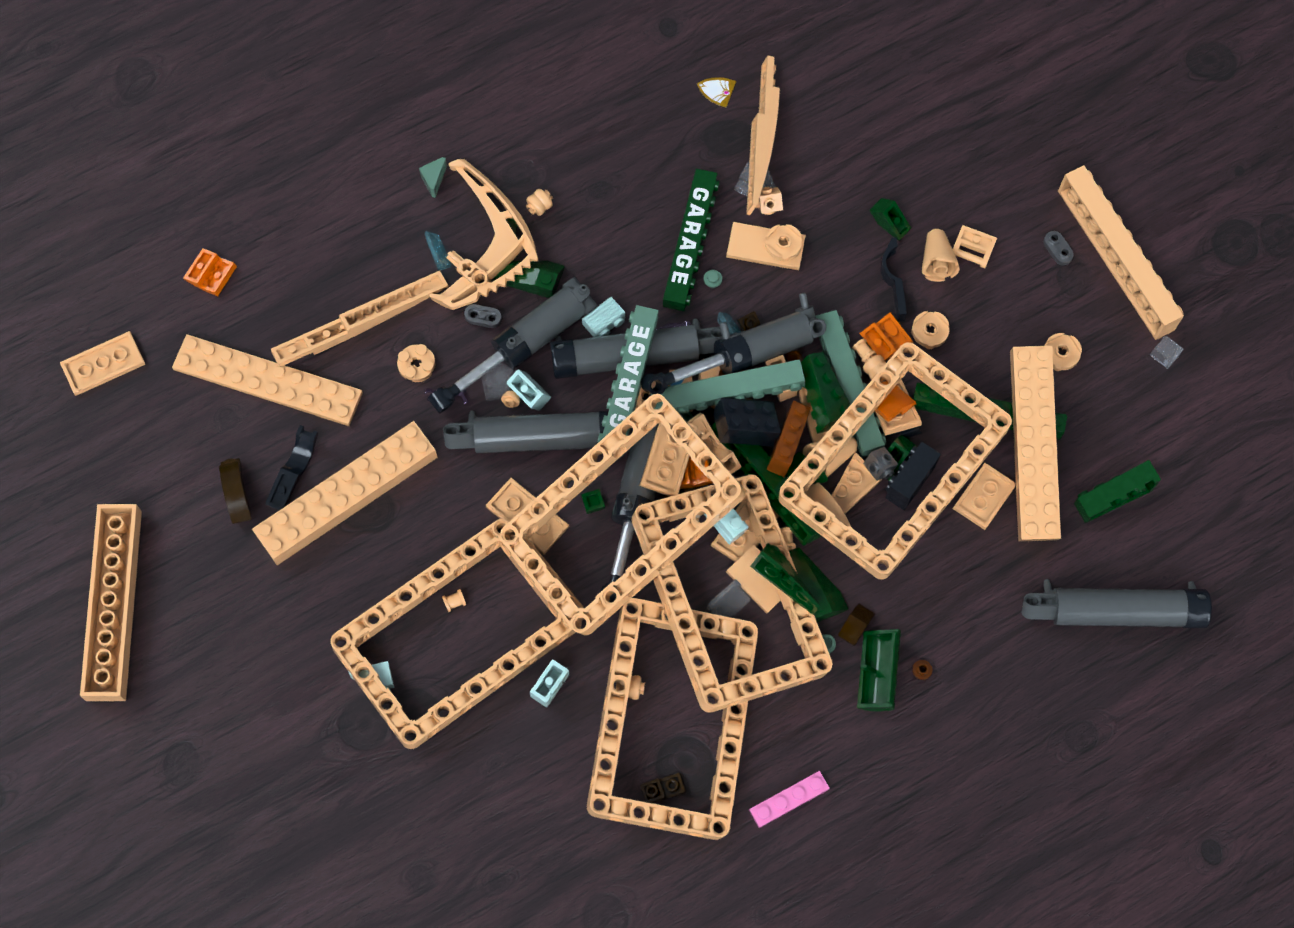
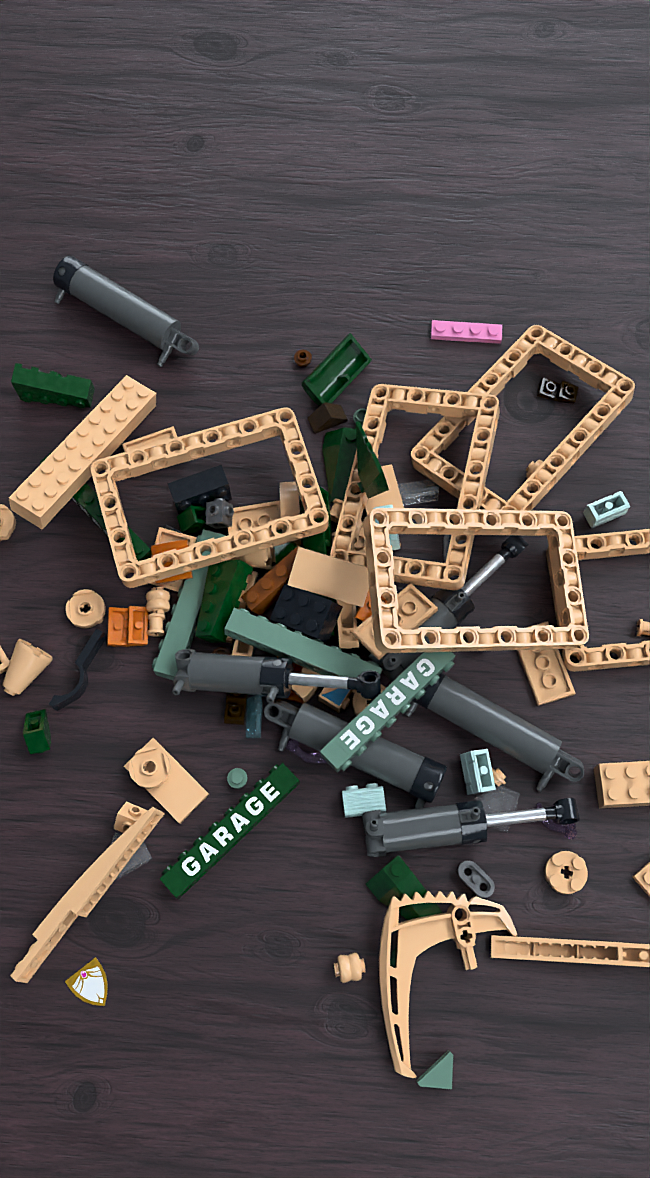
camera: 145 degrees left, 0 degrees up
(437, 250) = (481, 982): clear light blue slope -> none
(751, 452) = (329, 577): none -> light nougat tile

